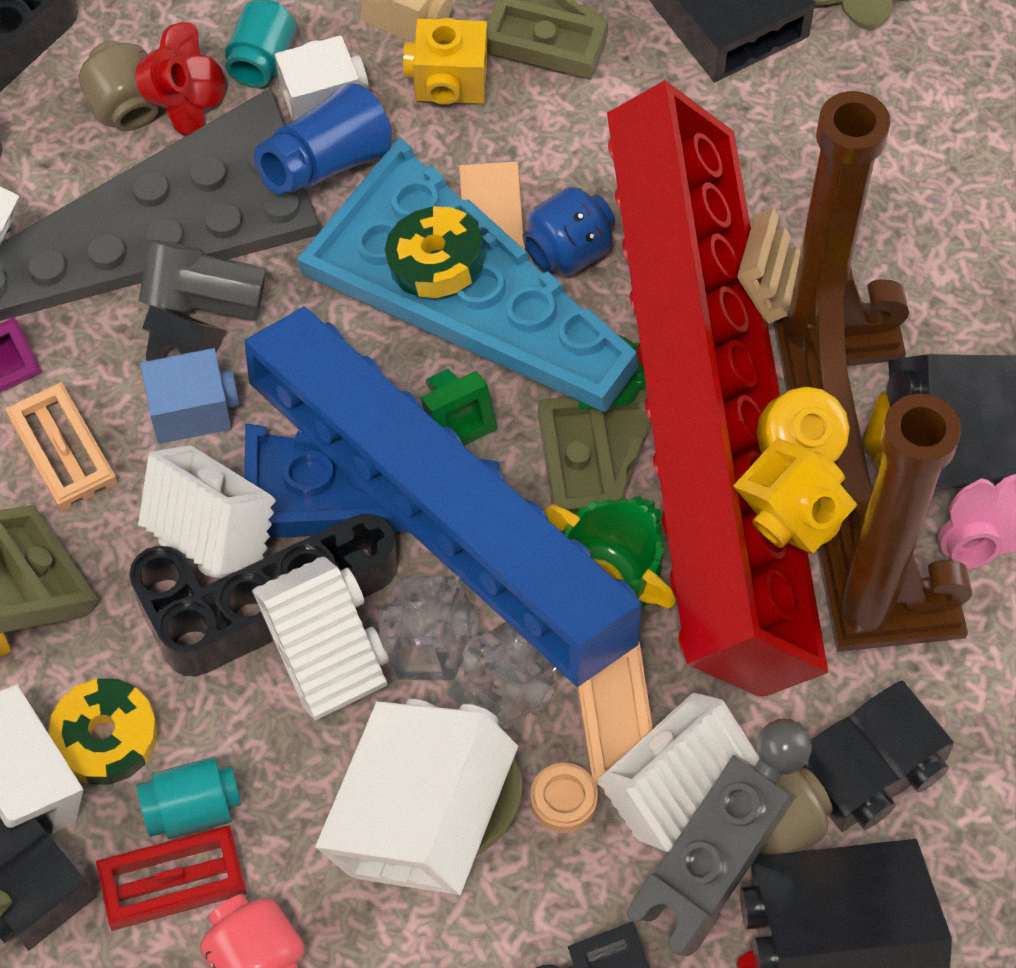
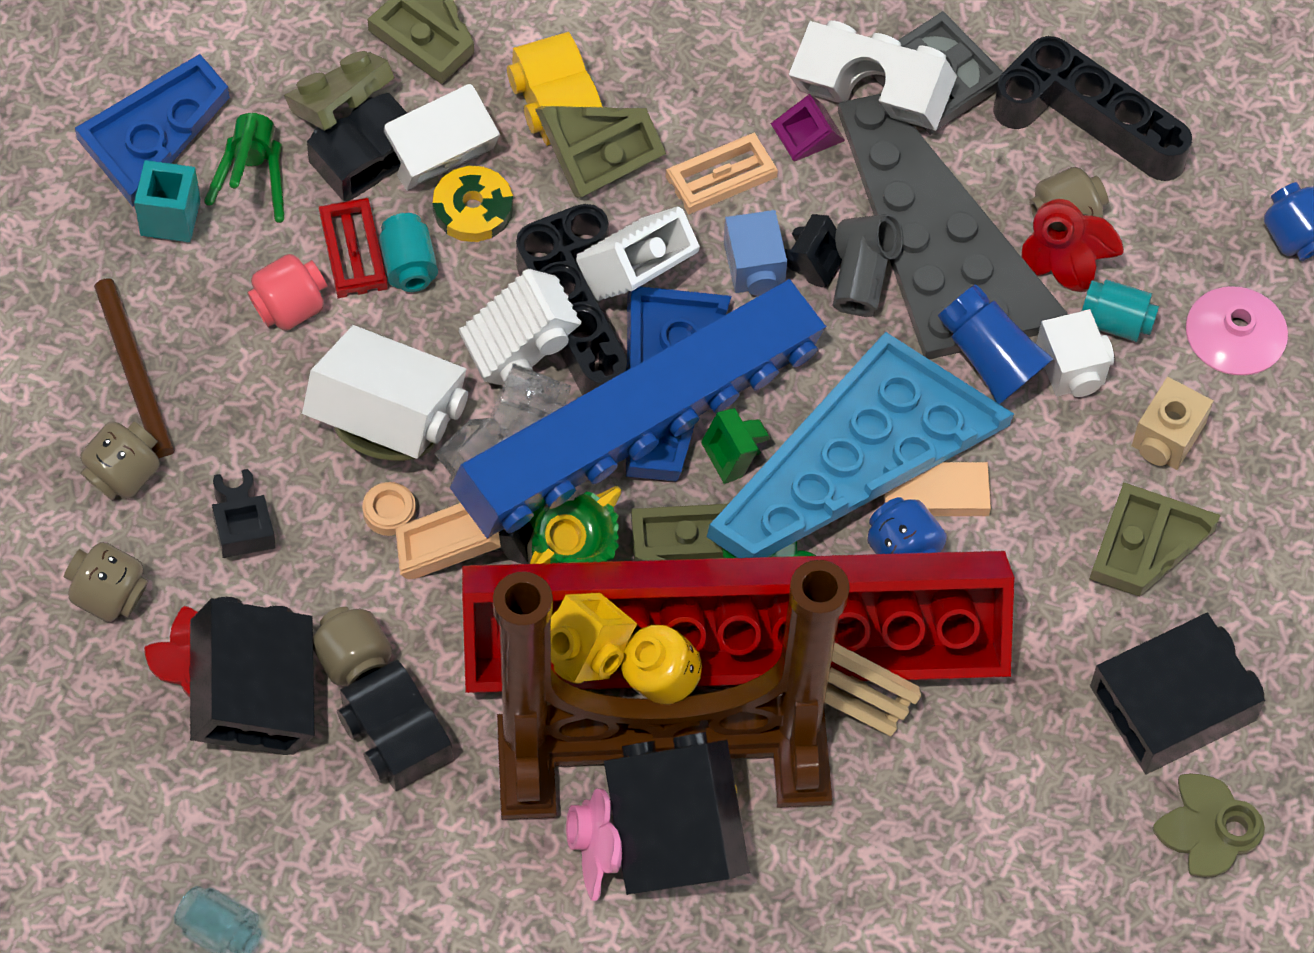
camera: 90 degrees right, 0 degrees up
(440, 273) = (869, 439): piece -> none
(448, 61) = (1092, 452): yellow brick -> none
(674, 768) = (390, 577): white brick -> none
(723, 837) = (323, 590): dark grey plate -> none

